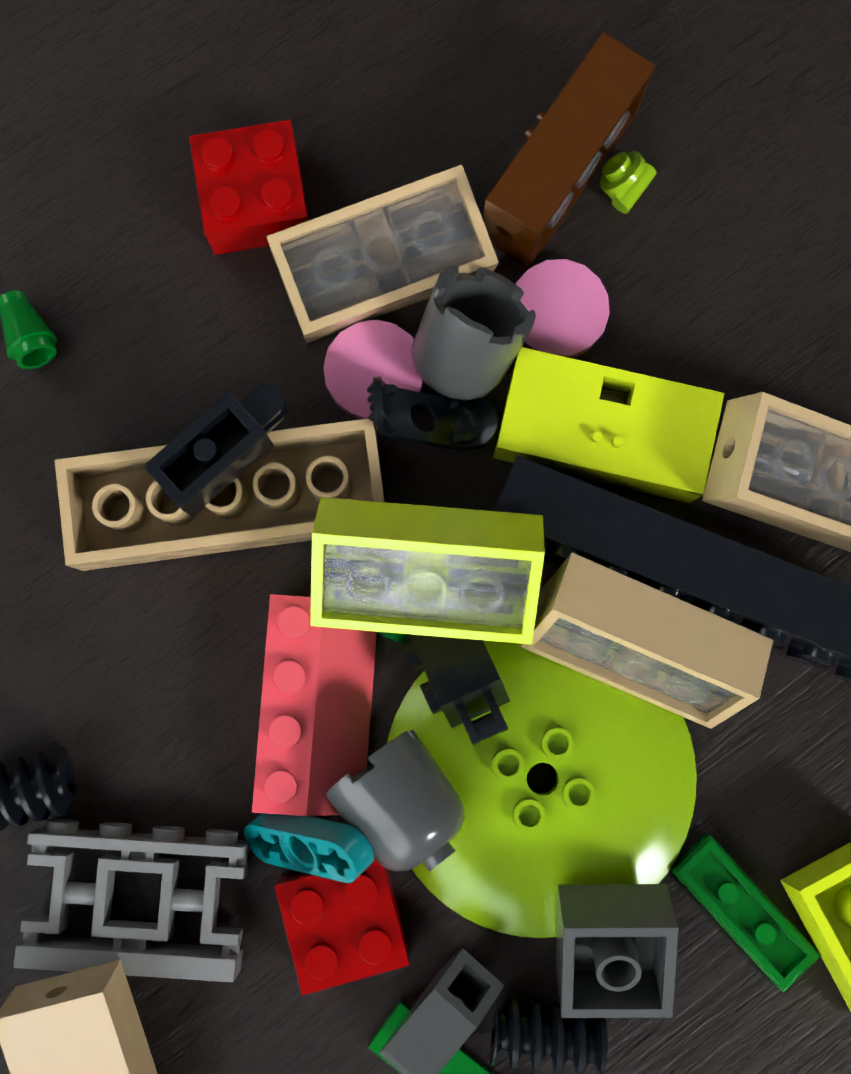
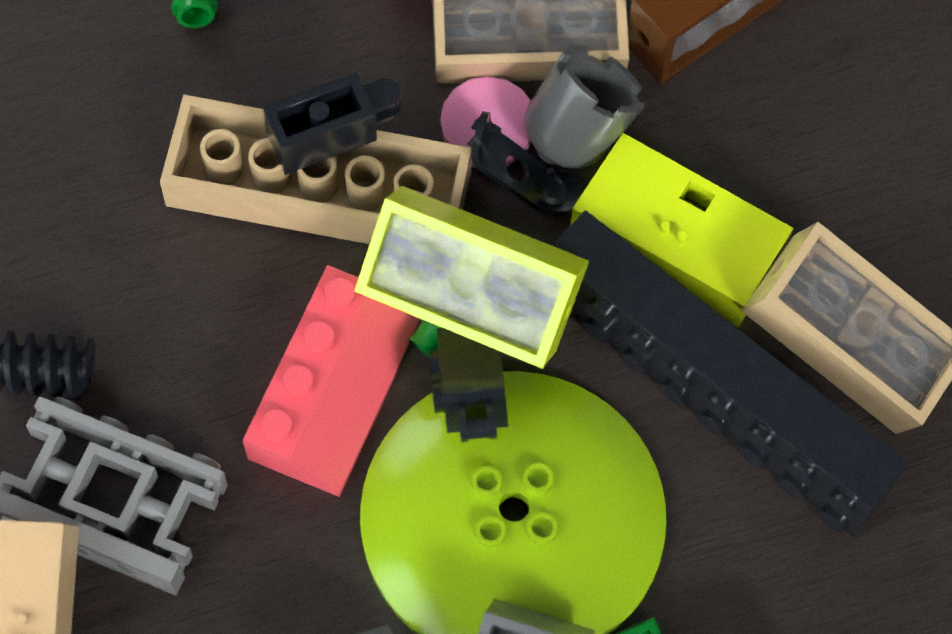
camera: 20 degrees right, 15 degrees down
(310, 845) = (294, 475): teal beam -> none
(341, 928) = (287, 570): red brick -> none
(402, 805) = (376, 470): dark grey cylinder -> none
(567, 305) = (677, 121): bright pink tile -> none
(626, 179) = (773, 34): lime plate -> none
(648, 643) = (645, 410): tan brick -> none

